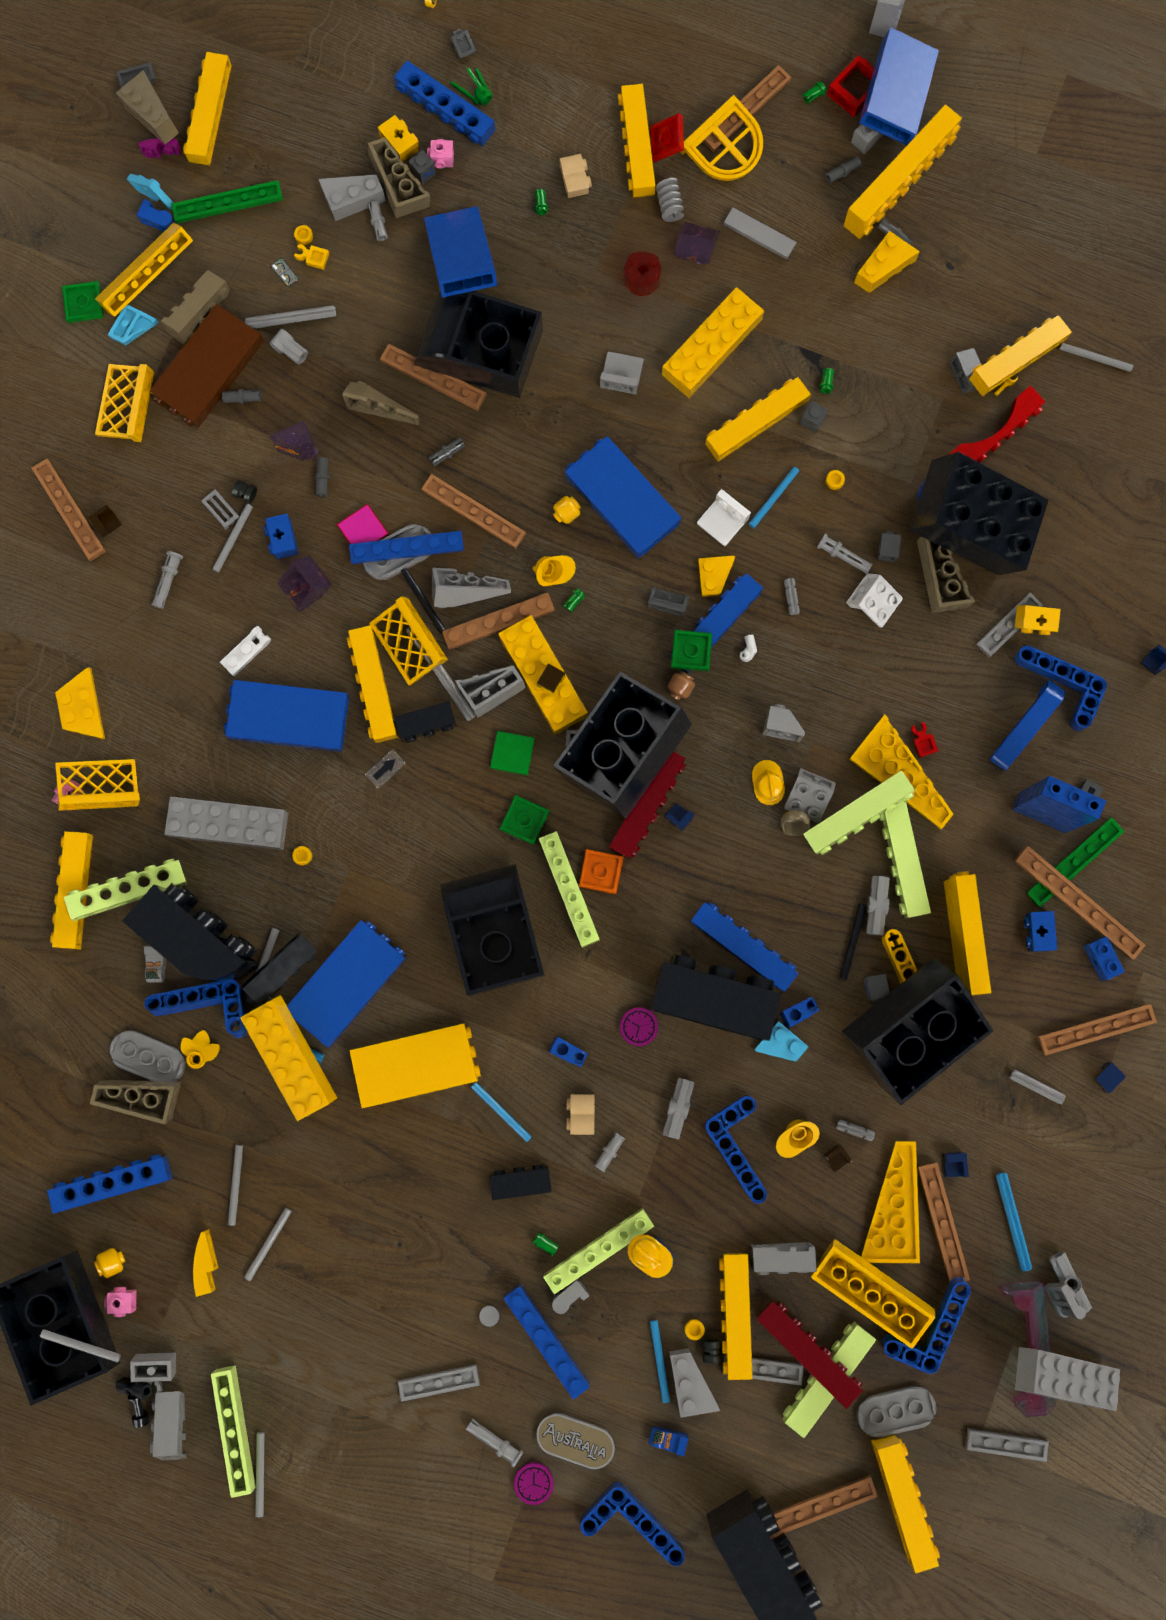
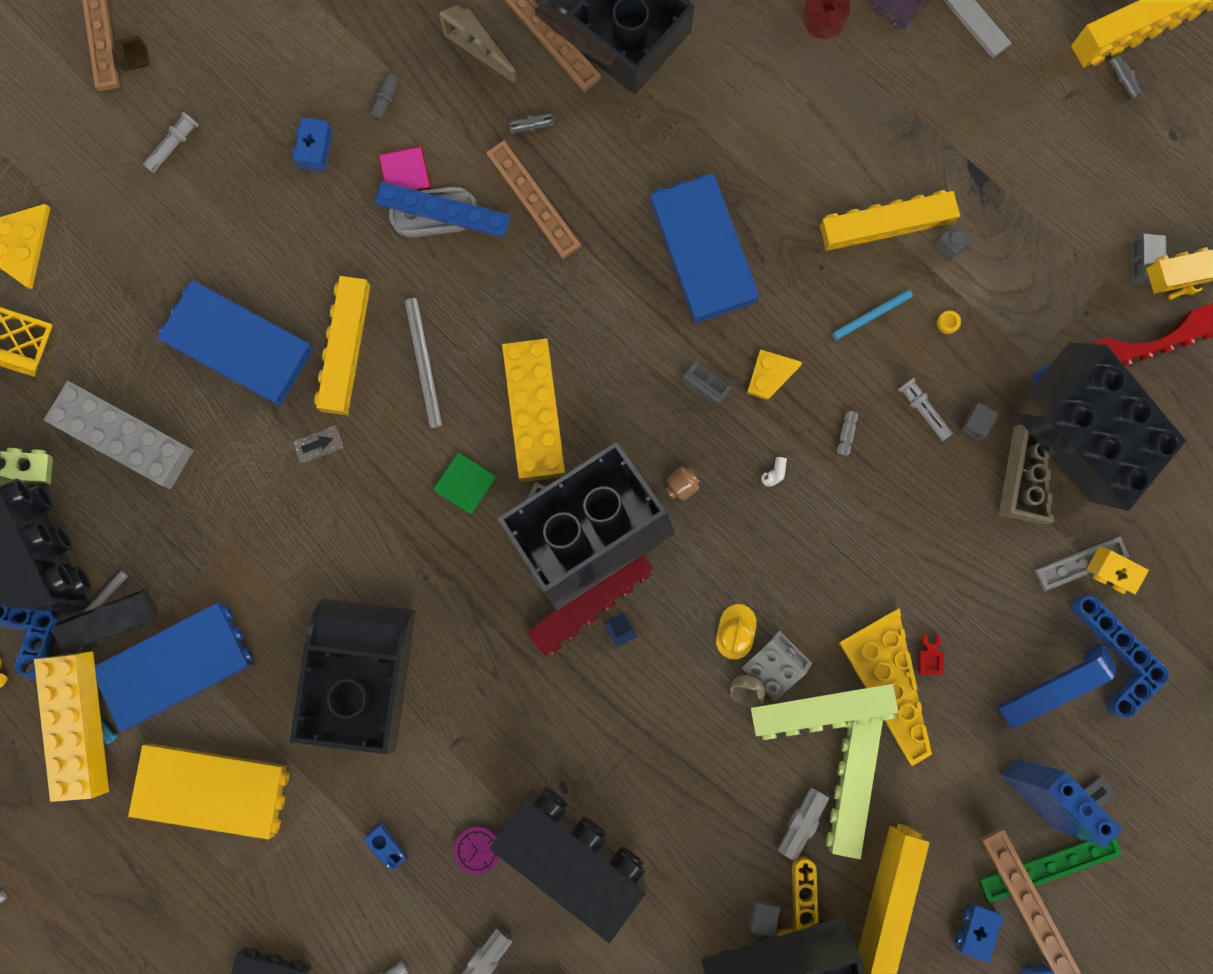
camera: 20 degrees right, 0 degrees up
(230, 520) = (266, 106): light grey tile -> none
(232, 538) = (260, 126): light grey bar -> none
(244, 491) = (291, 77): pearl dark grey wheel -> none
(245, 651) = (221, 254): white plate -> none
(295, 442) = (370, 46): clear purple slope -> none
(302, 855) = (187, 503): yellow tile -> none
(304, 582) = (316, 204): clear purple slope -> none
(420, 630) = (418, 305): yellow fence -> none
(422, 599) = (438, 277): black bar -> none
(425, 722) = (383, 410): black brick -> none
(457, 589) = (480, 278): light grey wedge -> none
(490, 689) = (468, 403): light grey wedge -> none
(497, 621) = (509, 330): medium nougat plate -> none
(501, 1112) = (284, 883): dark azure bar -> none
(524, 820) = (447, 563): green tile -> none
(551, 678) = (537, 418): dark brown panel -> none
(554, 570) = (594, 299): yellow piece -> none
(566, 509) = (636, 237): yellow head -> none
(569, 889) = (462, 663): yellowish green brick -> none
(574, 600) = (603, 340): green pin -> none
(582, 1114) = (371, 924): tan brick -> none
(601, 871) = (507, 656): orange tile -> none
(621, 373) = (758, 111): light grey bracket -> none
(691, 650) = (709, 449): green tile -> none
(712, 342) = (873, 116): yellow brick -> none
(724, 518) = (807, 316): white bracket -> none
(729, 609) = (750, 430): blue brick -> none
(744, 947) = (632, 810): blue brick -> none
(782, 724) = (778, 573): light grey slope -> none
(782, 1044) = (634, 940): medium azure wing -> none
(799, 1012) = (665, 909): blue leg -> none
(826, 382) = (982, 212): green pin -> none
(853, 941) = (758, 853): black bar -> none
(875, 598) = (941, 473): white bracket -> none
(887, 260) = (1103, 102): yellow wedge -> none

